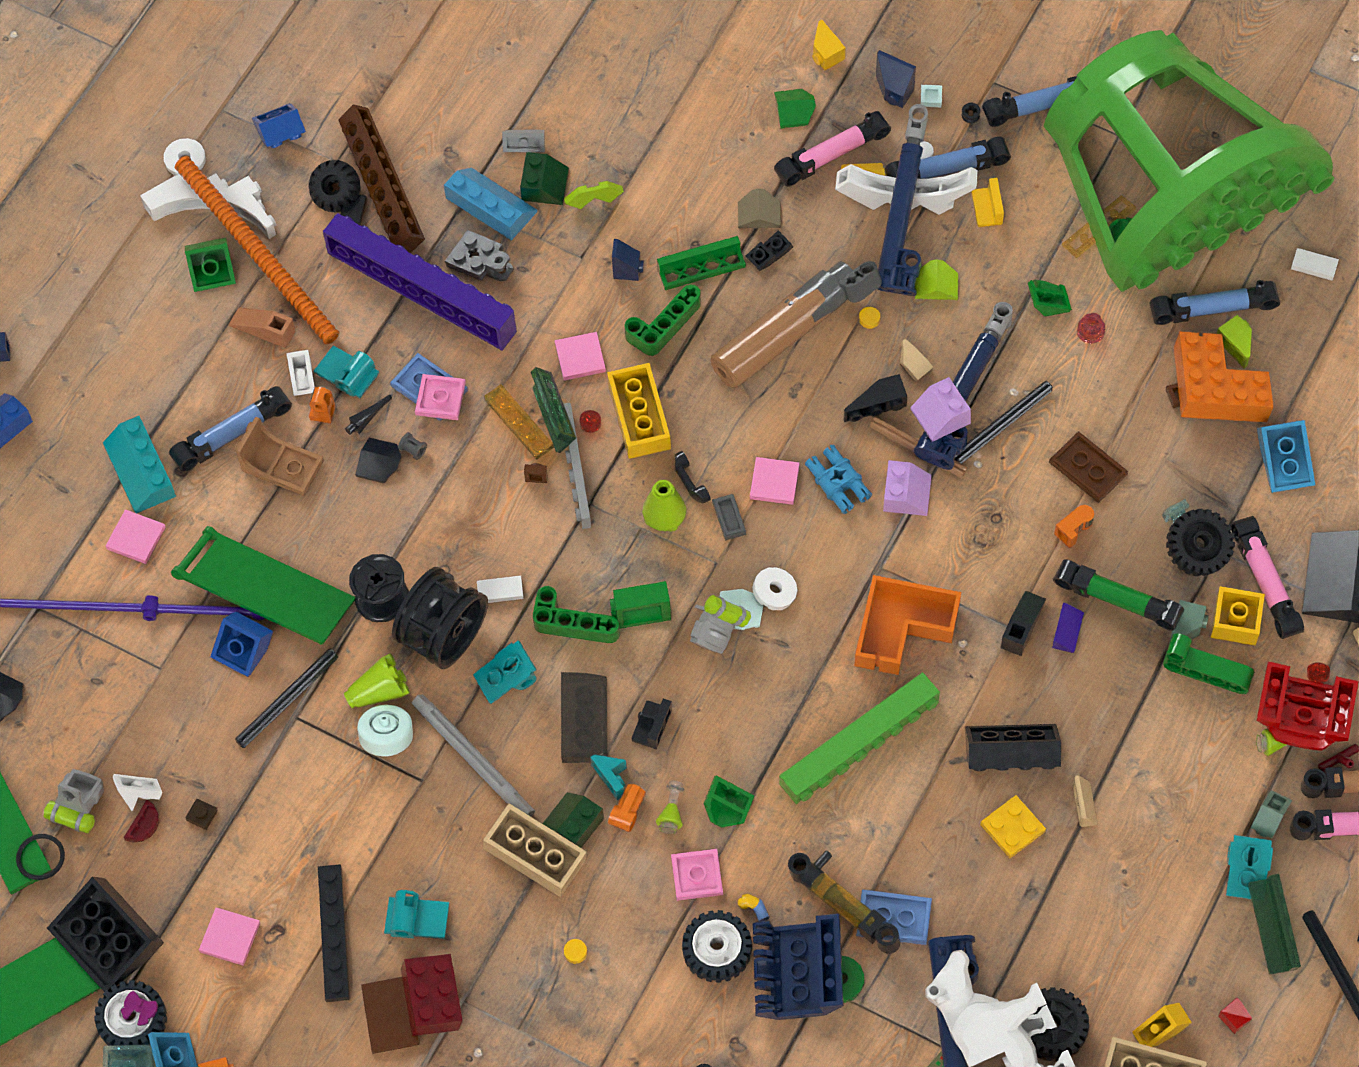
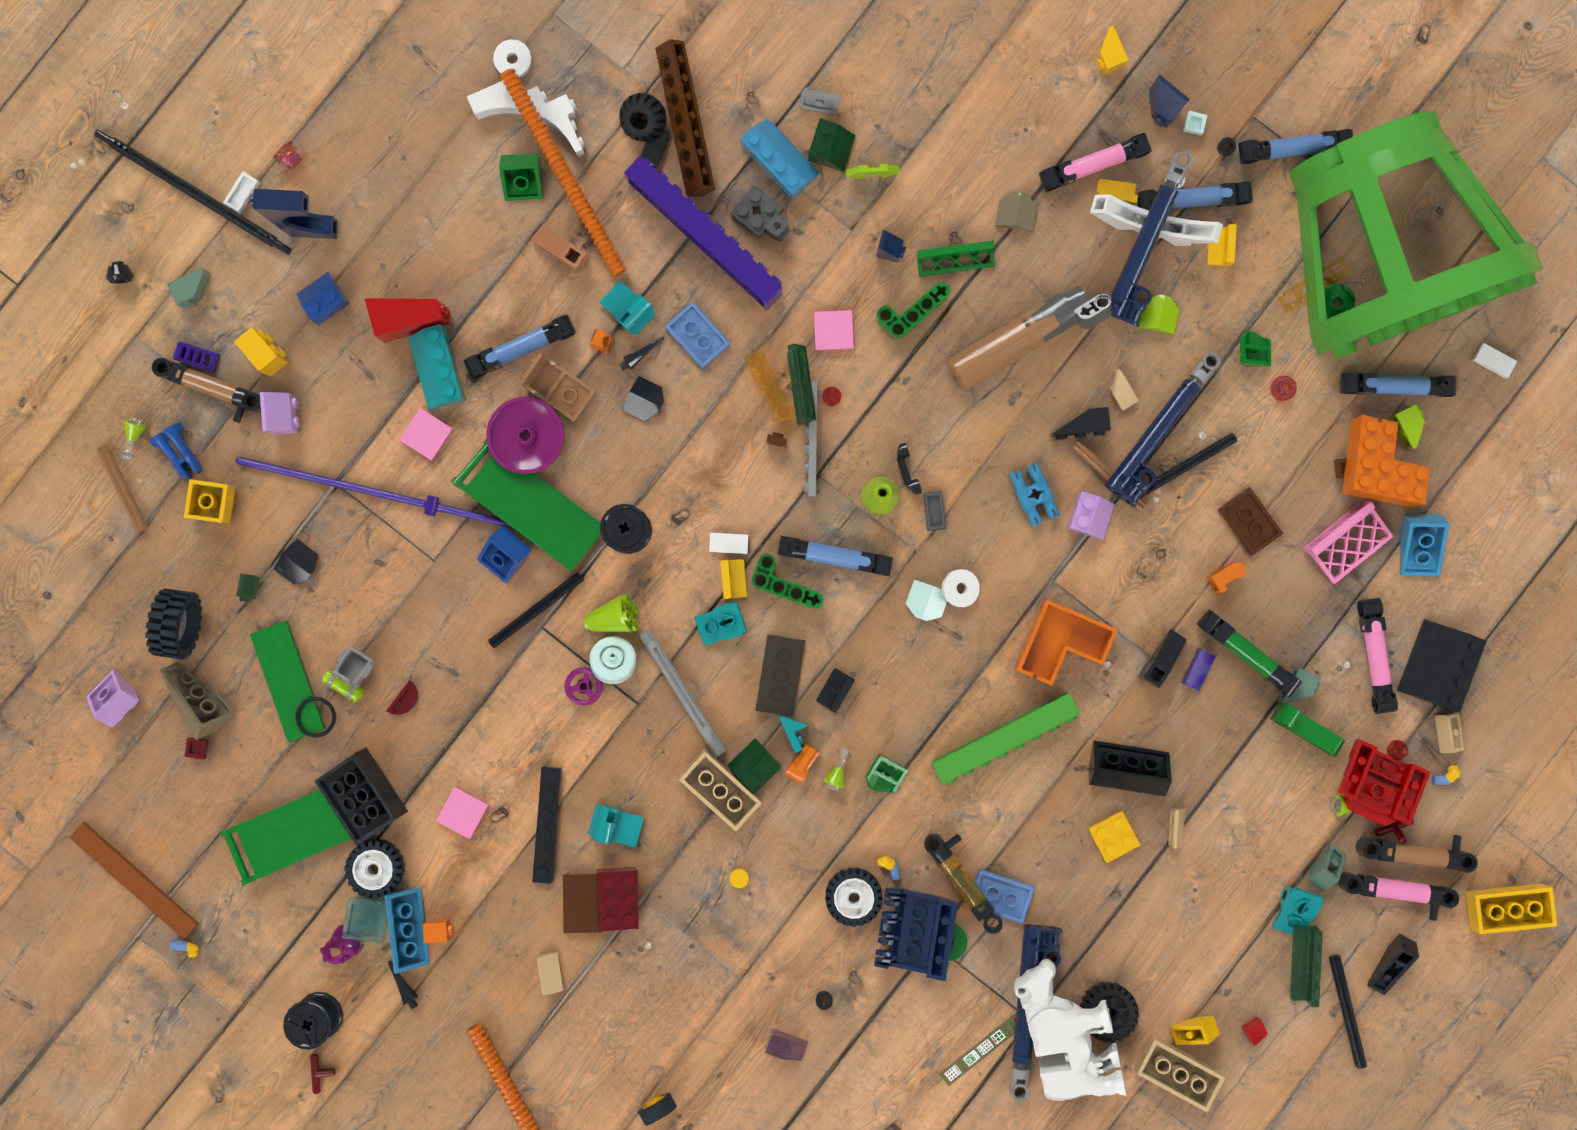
camera: 10 degrees right, 25 degrees up
(94, 415) = (404, 317): none -> red slope
(133, 787) = (398, 673): white slope -> none
(146, 1008) = (382, 867): magenta piece -> none
(201, 814) = (452, 701): dark brown plate -> none
(249, 513) = (525, 435): none -> magenta dish
(279, 125) = (601, 42): blue slope -> none
(301, 372) = (587, 305): white slope -> none
(354, 774) = (569, 689): none -> magenta piece
(412, 446) = (676, 399): dark grey bush -> none
(439, 618) = (672, 573): black wheel -> none
(440, 397) = (705, 350): bright pink tile -> none
(511, 624) = (733, 578): none -> yellow panel
(576, 578) = (835, 556): none -> piece
(639, 410) = (875, 398): yellow brick -> none
(641, 605) = (845, 586): green window -> none
(697, 874) = (848, 829): bright pink tile -> none
(717, 622) = (905, 617): light grey piece -> none
(773, 249) = (1018, 256): black slope -> none
(774, 480) = (979, 484): bright pink tile -> none
(794, 107) = (1069, 110): green slope -> none
(869, 317) = (1093, 340): yellow piece -> none
(941, 410) = (1138, 457): lavender slope -> none
(1175, 511) = (1316, 582): clear light blue tile -> none
(1187, 459) = (1341, 527): none -> bright pink fence
(1216, 538) = (1316, 614): black wheel -> none
(1237, 616) = (1344, 689): yellow brick -> none

